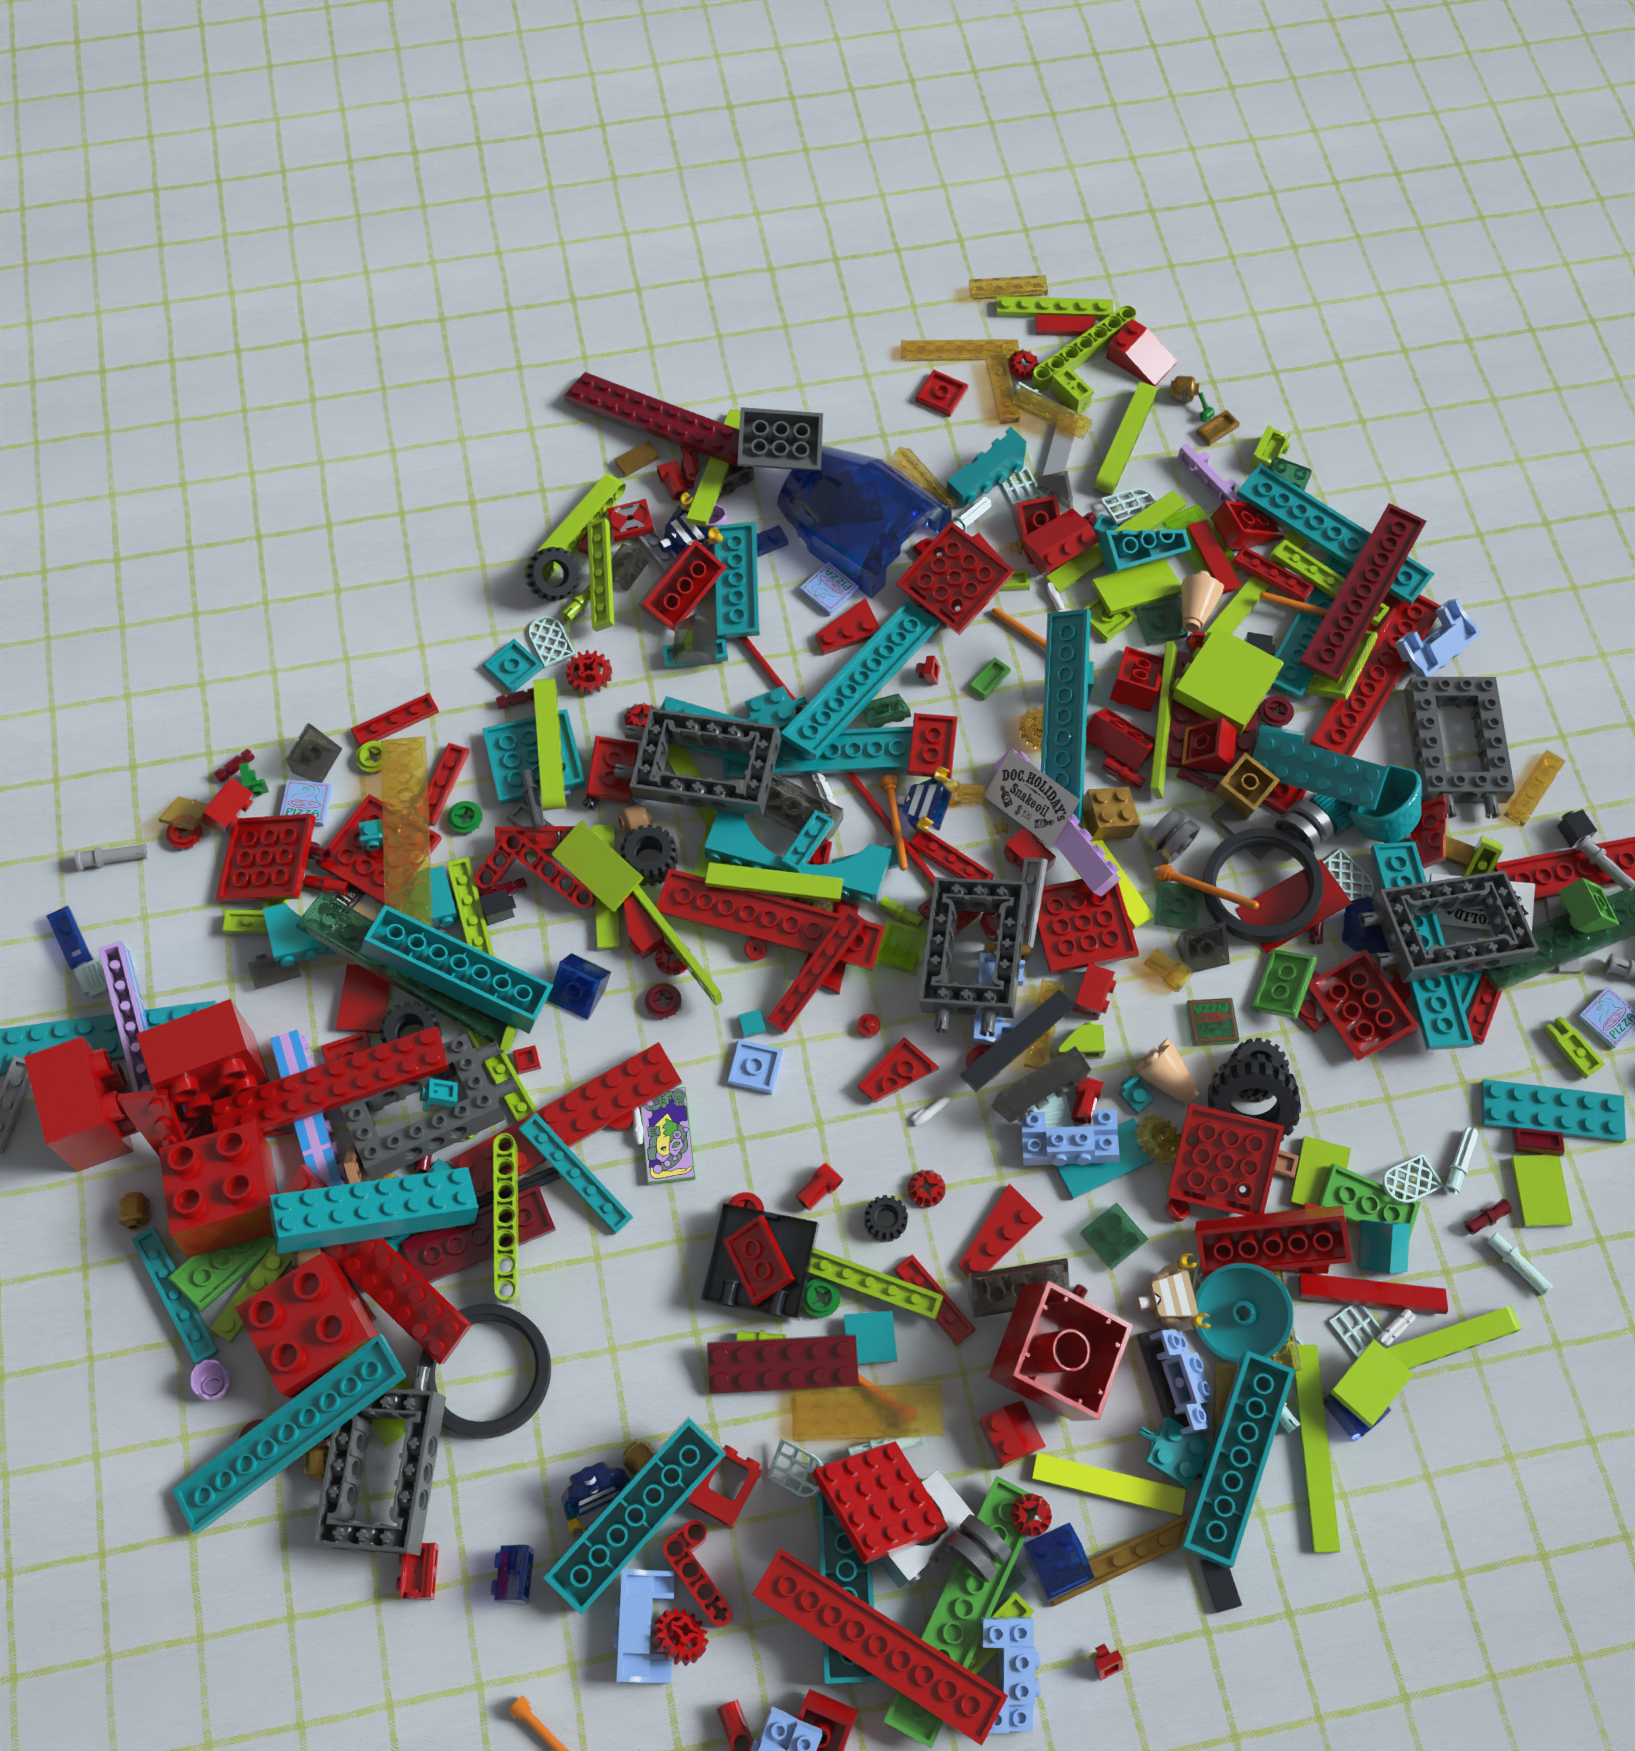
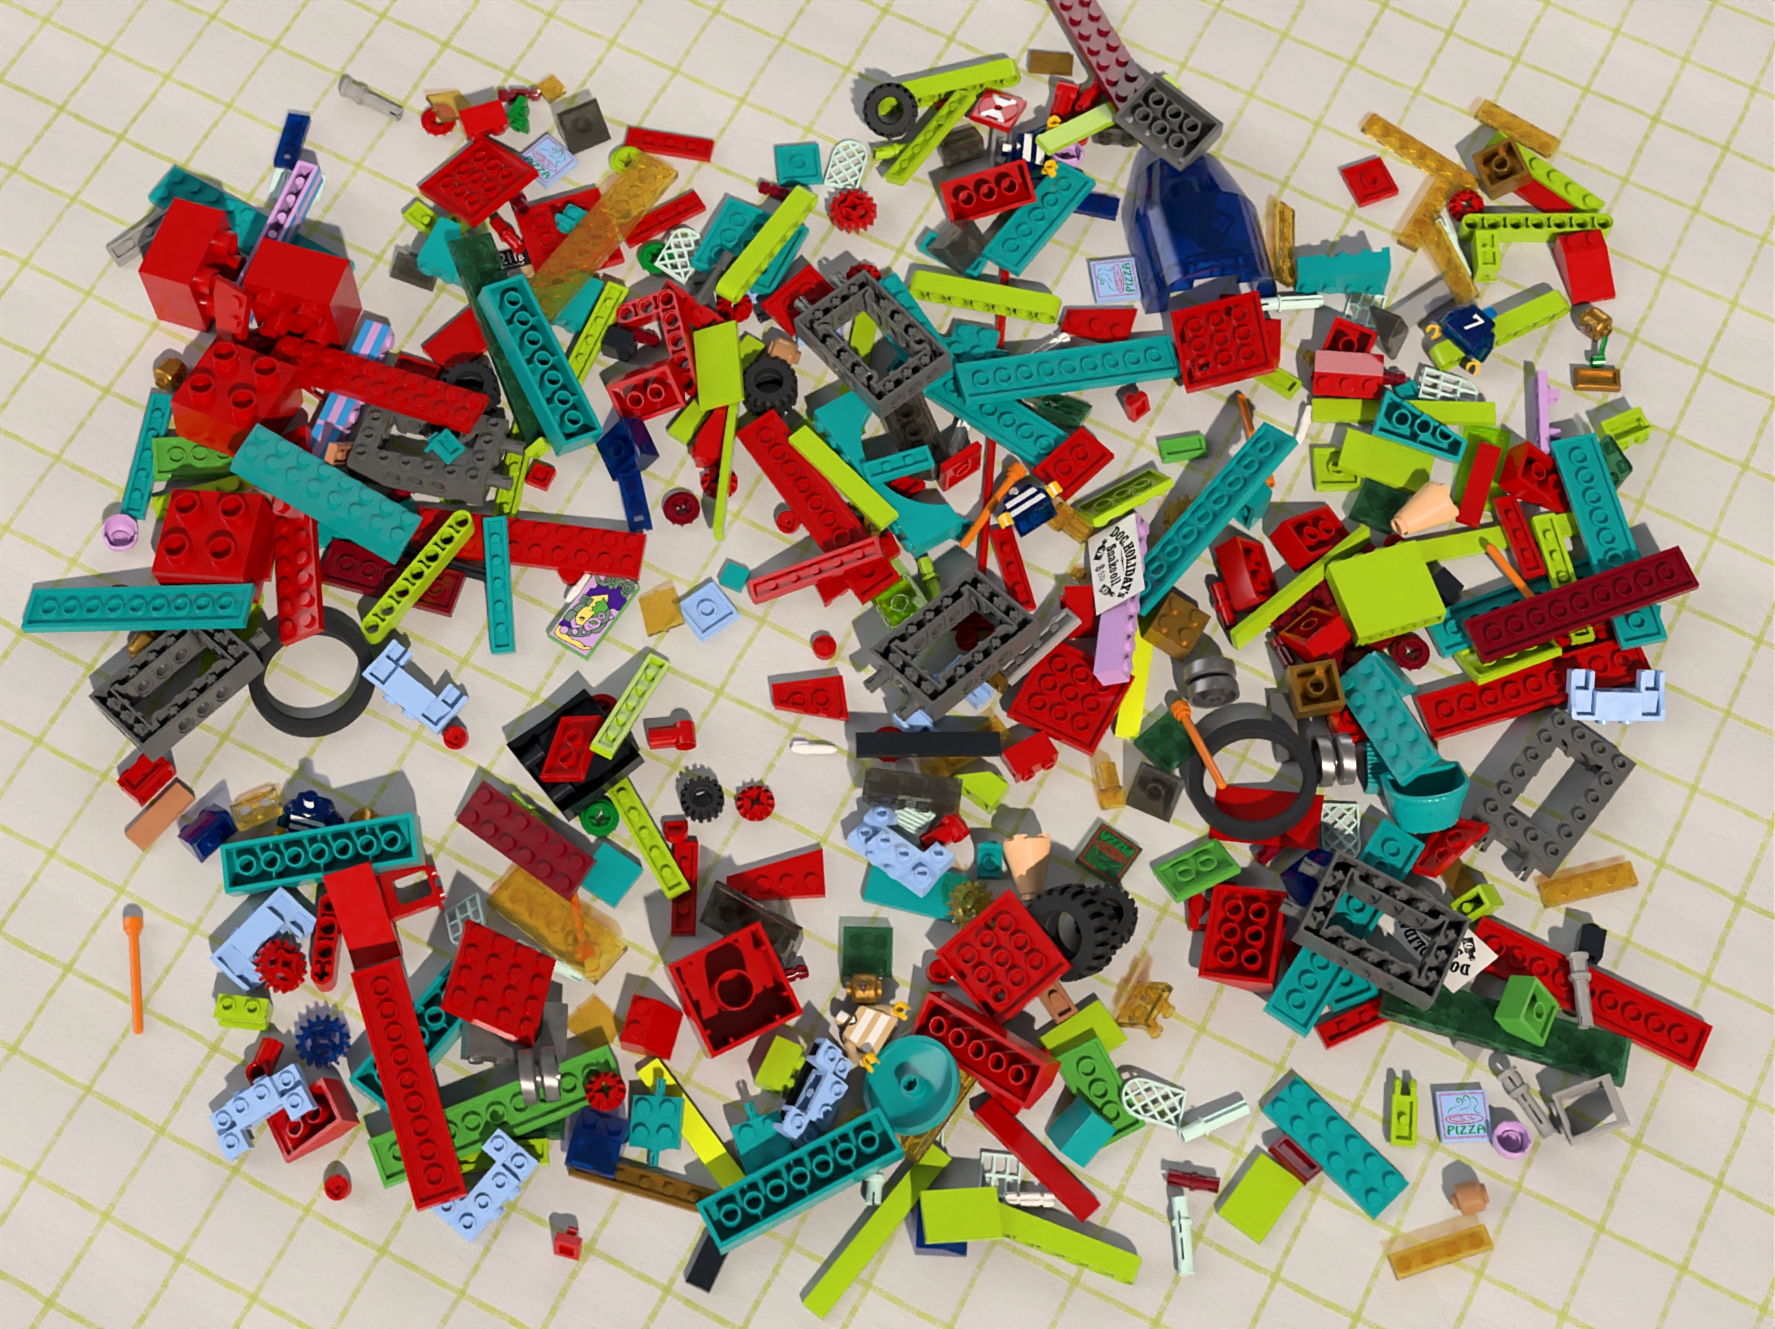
camera: 40 degrees right, 0 degrees up
(257, 742) = (551, 89): none -> clear yellow tile
(458, 1595) = (160, 816): none -> nougat tile
(501, 818) = (664, 252): none -> light aqua window
(541, 1520) = (257, 809): none -> clear yellow piece
(557, 927) = (648, 390): none -> red slope
(561, 819) = (742, 312): none -> red gear
(583, 1320) = (408, 693): none -> light blue bracket
(621, 1022) = (634, 500): none -> clear blue plate
(649, 1325) = (456, 737): none -> red tile
(681, 1702) = (243, 1012): none -> lime hinge
(712, 1536) = (362, 915): none -> red tile
(720, 1094) = (661, 611): none -> clear yellow piece
(749, 667) = (985, 297): none -> lime beam
(751, 1672) = (318, 1051): none -> clear blue gear
(773, 1190) = (630, 706): none -> lime plate
(828, 670) = (1054, 344): none -> white axle
(849, 808) = (960, 466): none -> red tile
(888, 1260) = (676, 831): none -> red tile
(966, 1466) = (595, 1024): none -> clear yellow piece
(967, 937) = (967, 639): none -> red tile
(985, 744) = (1123, 497): none -> lime plate
(1027, 320) = (1502, 168): none -> pearl gold brick
(1085, 1504) = (657, 1122): none -> teal plate
(1113, 450) = (1469, 331): none -> clear blue torso
(1135, 1382) = (780, 1066): none -> lime hinge
(1139, 1266) = (864, 988): none -> pearl gold head
(1343, 1113) = (1144, 1005): none -> clear yellow plate

